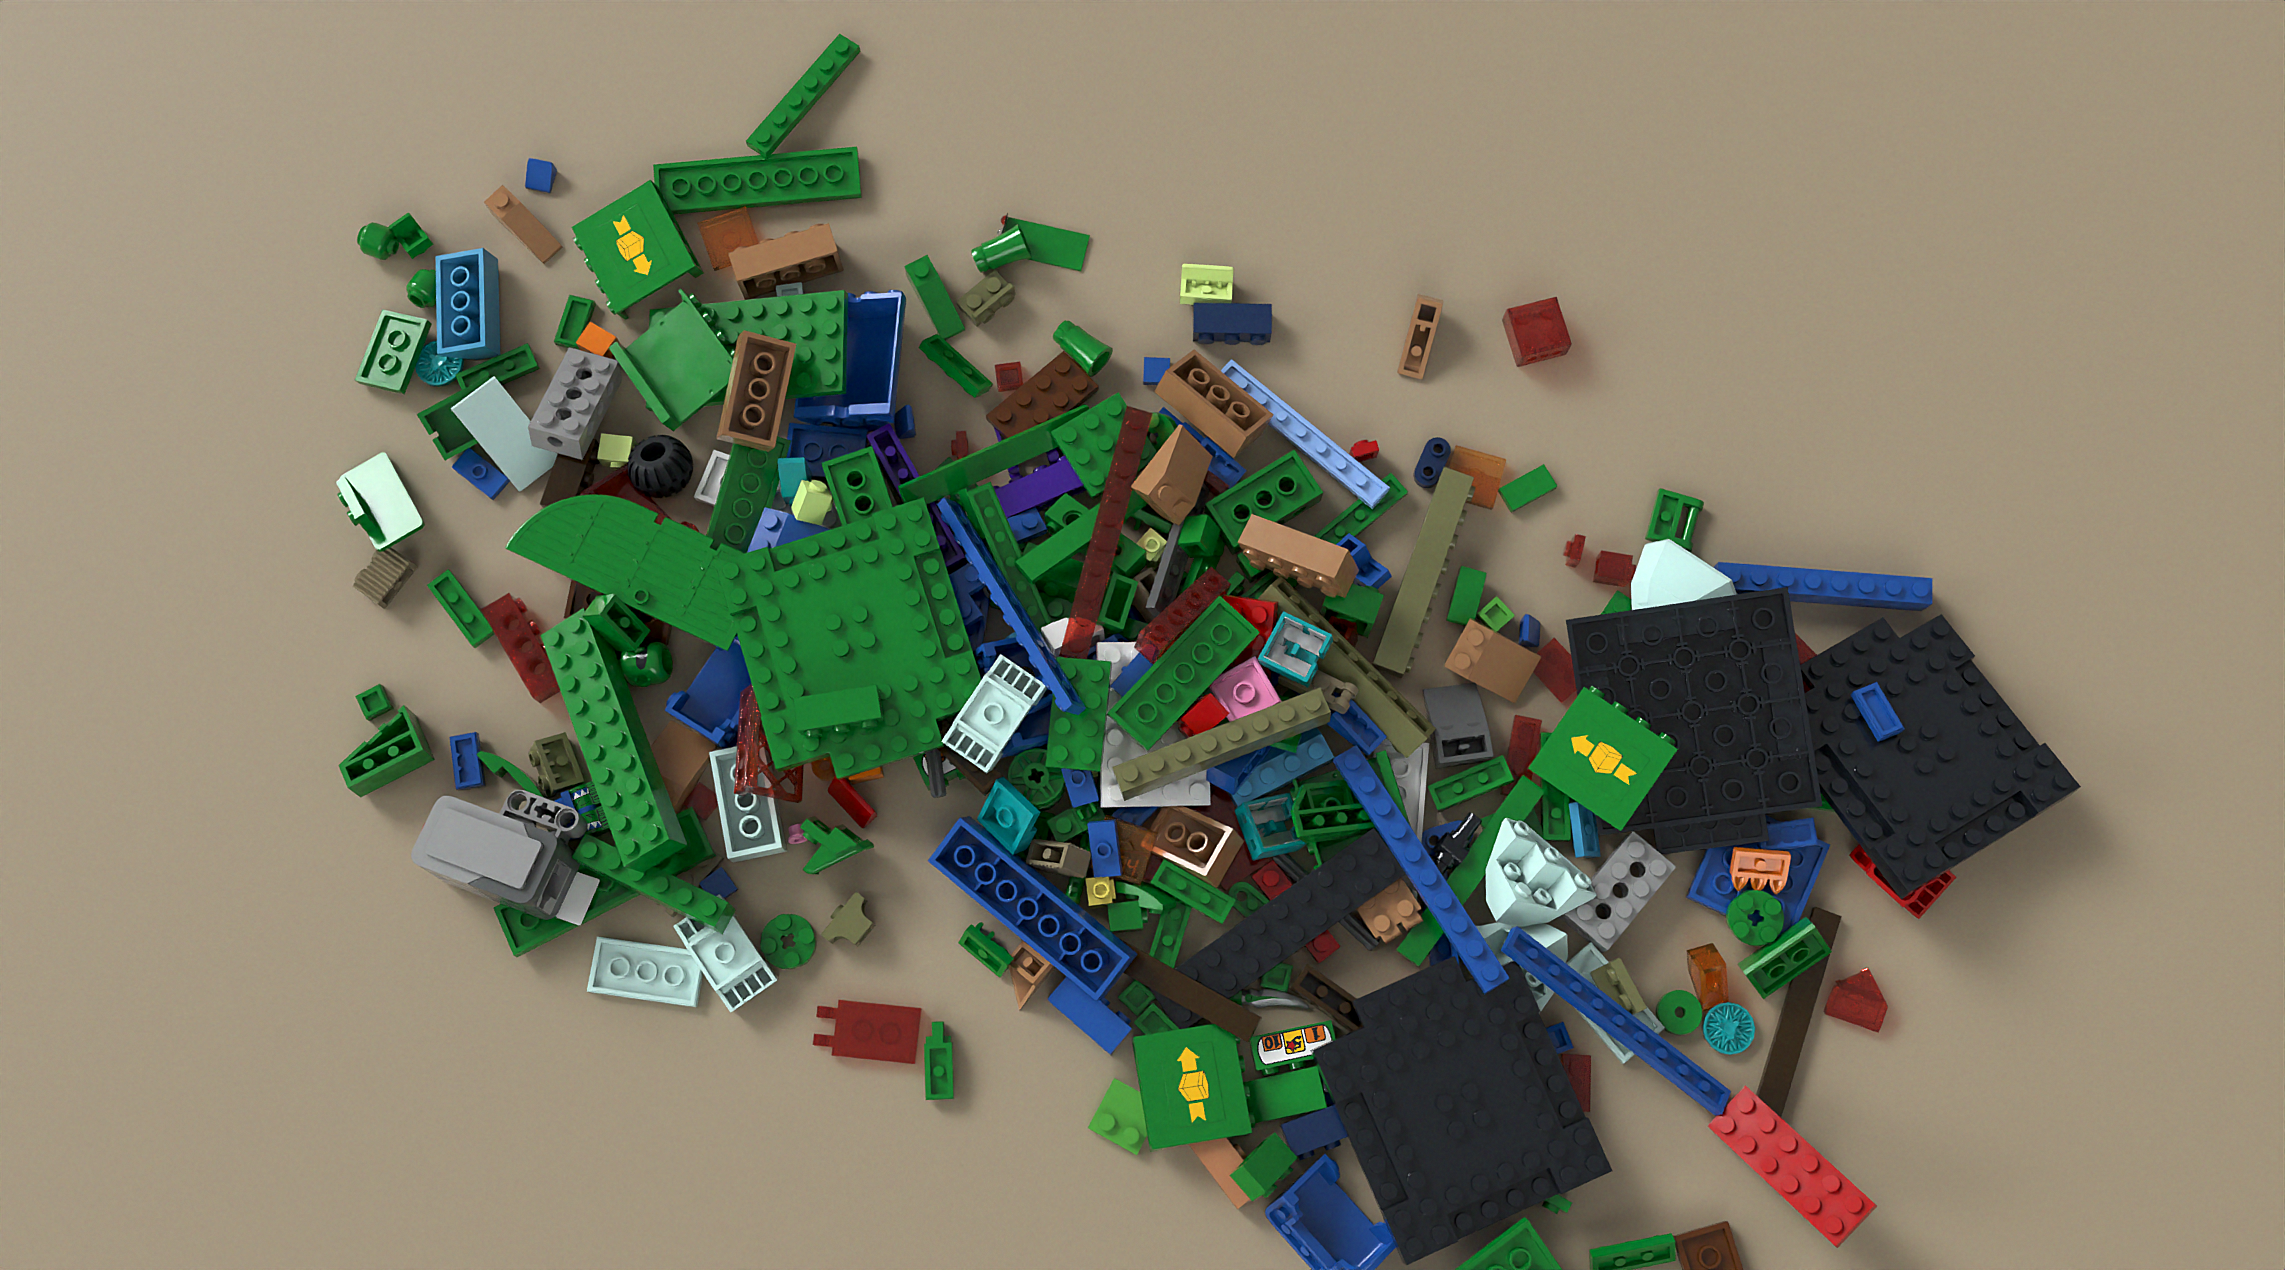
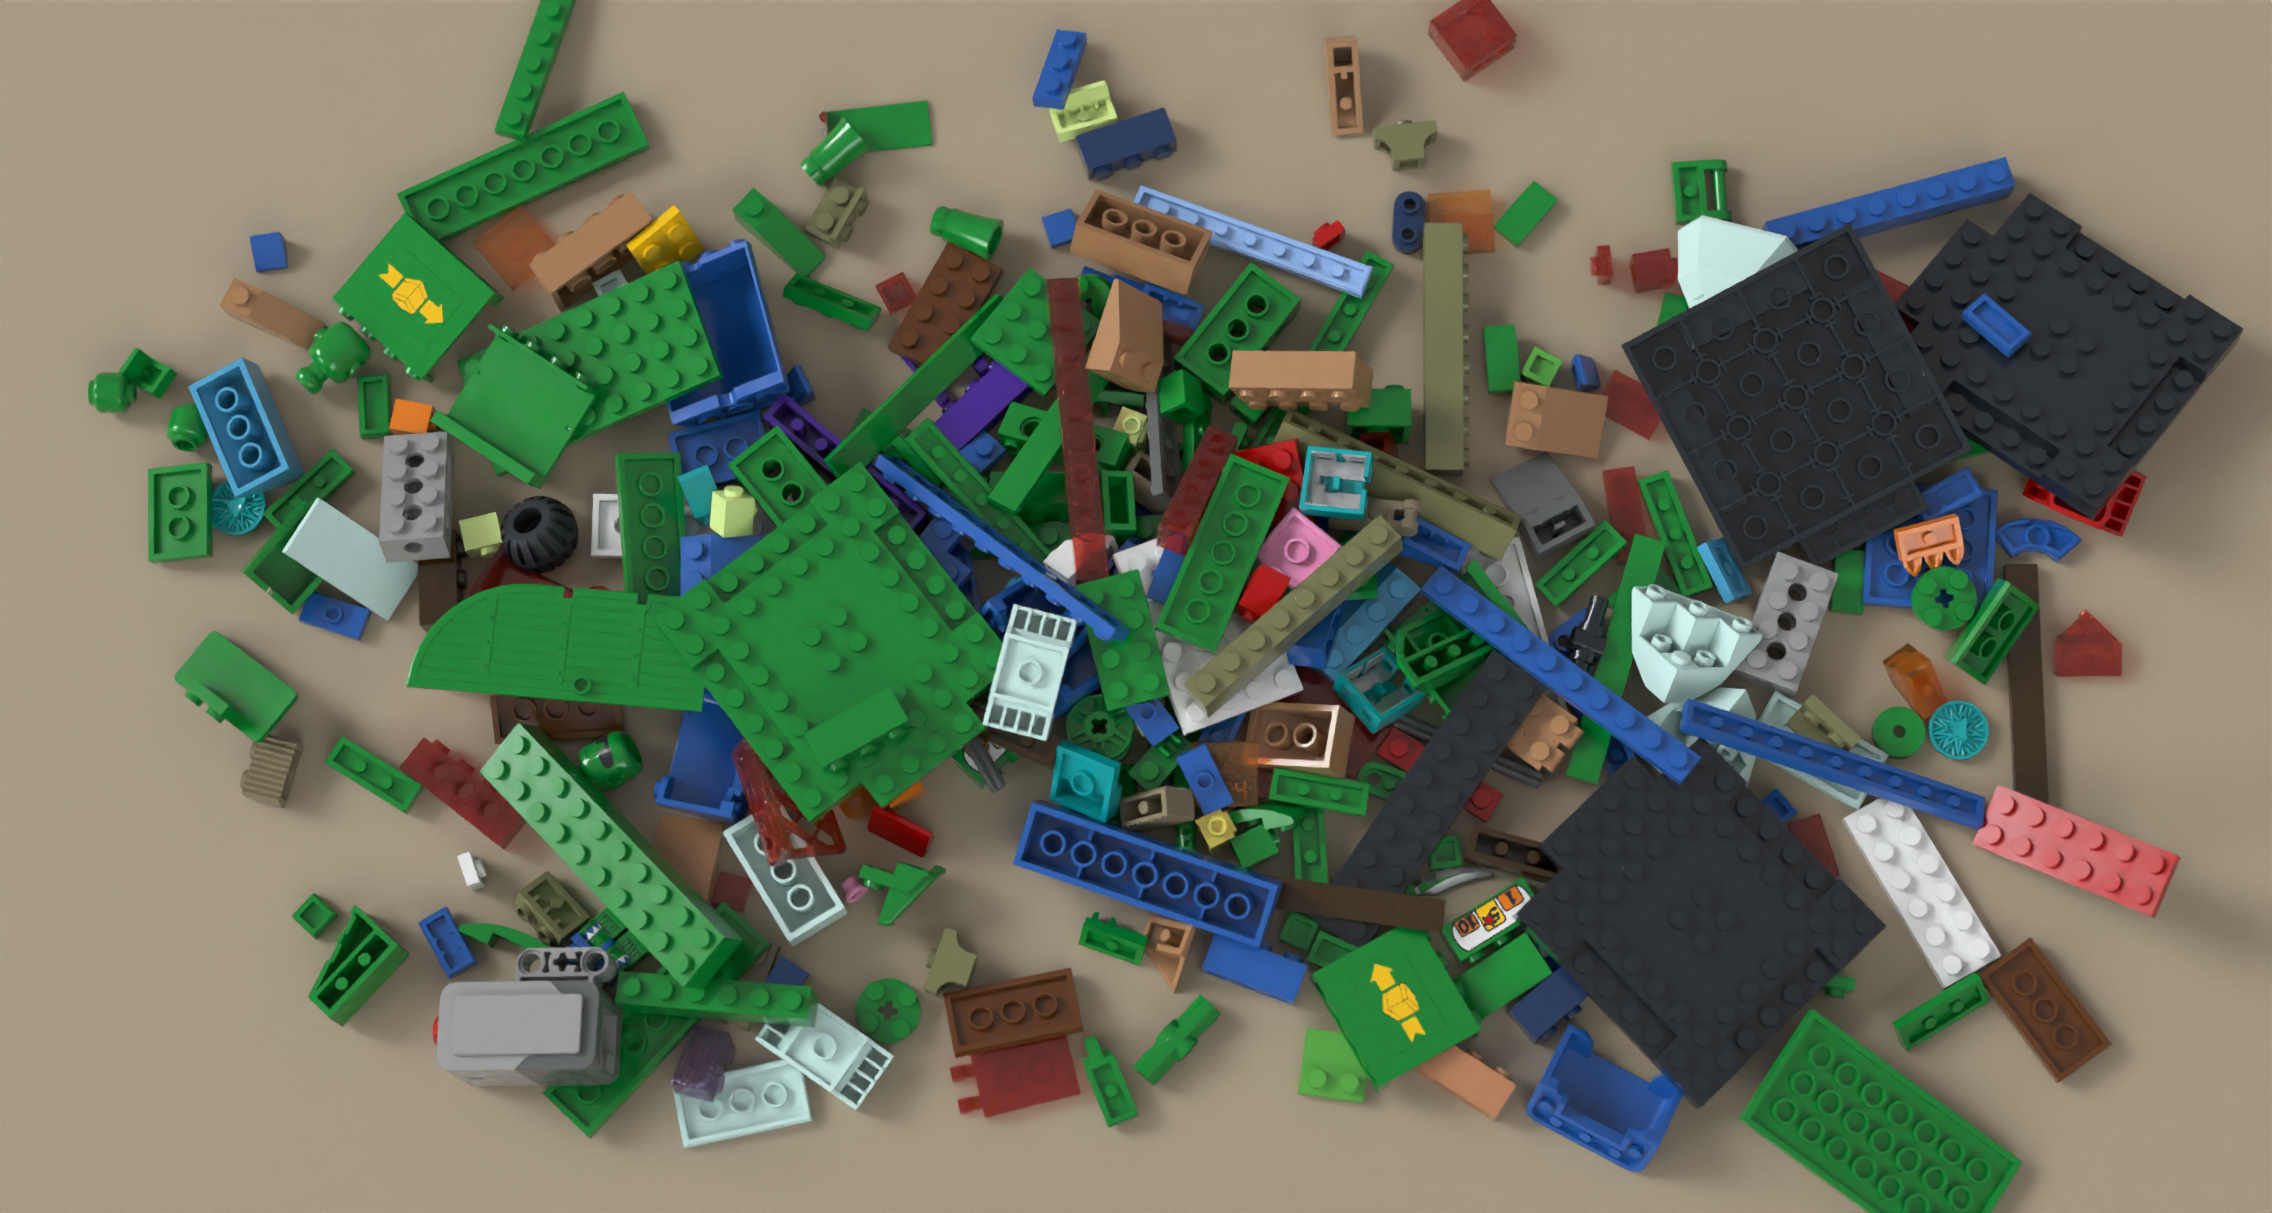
camera: 15 degrees left, 0 degrees up
(507, 711) = (473, 870): none -> white plate
(557, 271) = (335, 355): none -> green piece
(578, 898) = (635, 1048): white sticker -> none
(616, 623) = (562, 726): green brick -> none
(626, 930) = (703, 1063): none -> clear purple brick
(756, 391) = (625, 409): medium nougat brick -> none
(843, 272) = (665, 242): none -> yellow plate
(884, 979) = (1013, 1012): none -> reddish brown plate
(960, 446) = (871, 391): clear red plate -> none
(1006, 1049) = (1176, 1040): none -> green piece
(1201, 246) = (1060, 69): none -> blue plate
(1264, 1167) = (1508, 1060): green brick -> none
(1370, 571) = (1386, 368): blue brick -> none
(1452, 398) = (1405, 142): none -> olive brick
(1603, 757) = (1716, 481): green panel -> none
(1652, 1149) = (1921, 889): none -> white plate
(1680, 880) = (1848, 589): none -> green tile
(1849, 893) = (2036, 536): none -> blue tile

